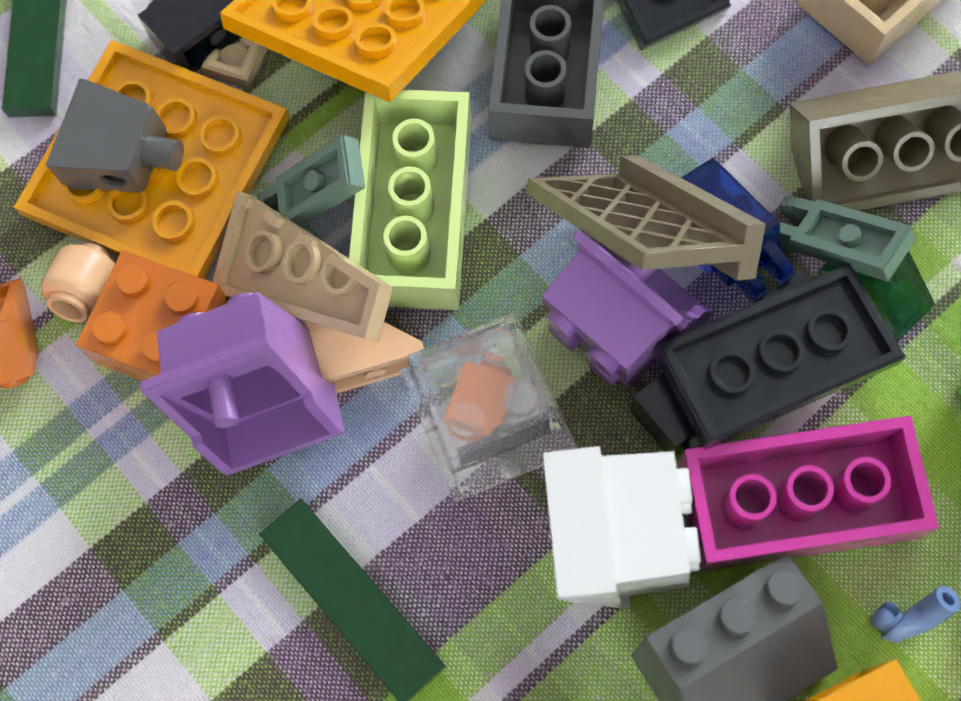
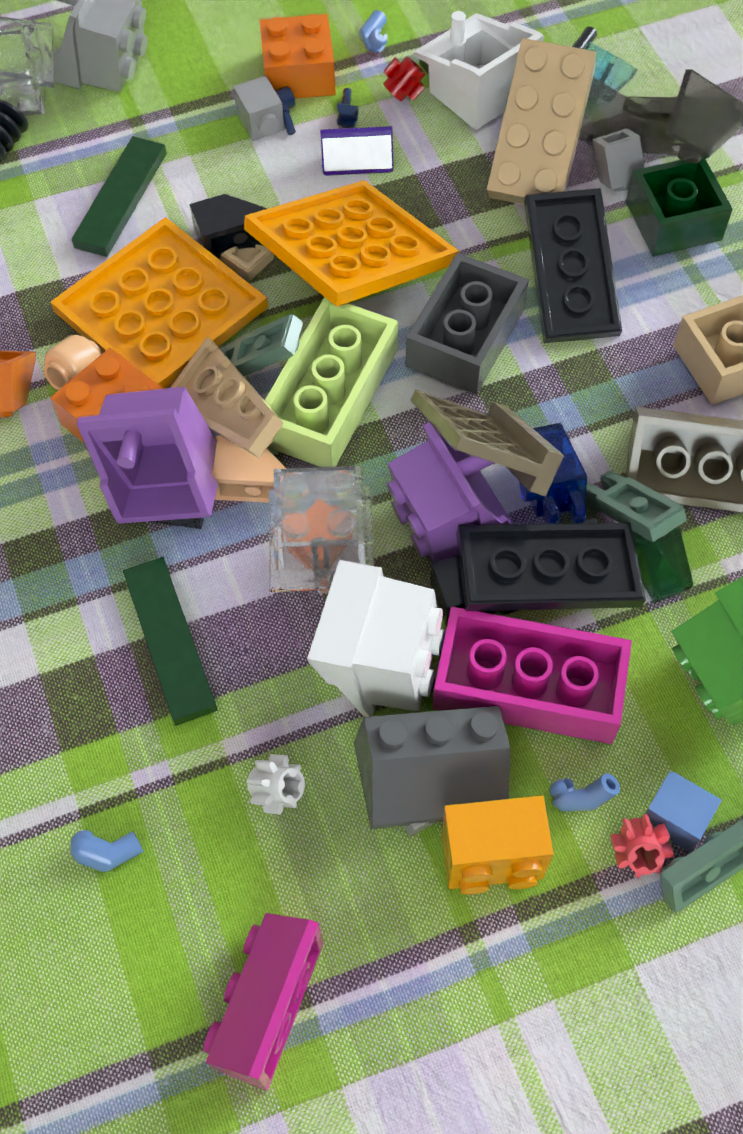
camera: 15 degrees right, 10 degrees down
(110, 142) = (133, 278): dark grey torso -> none

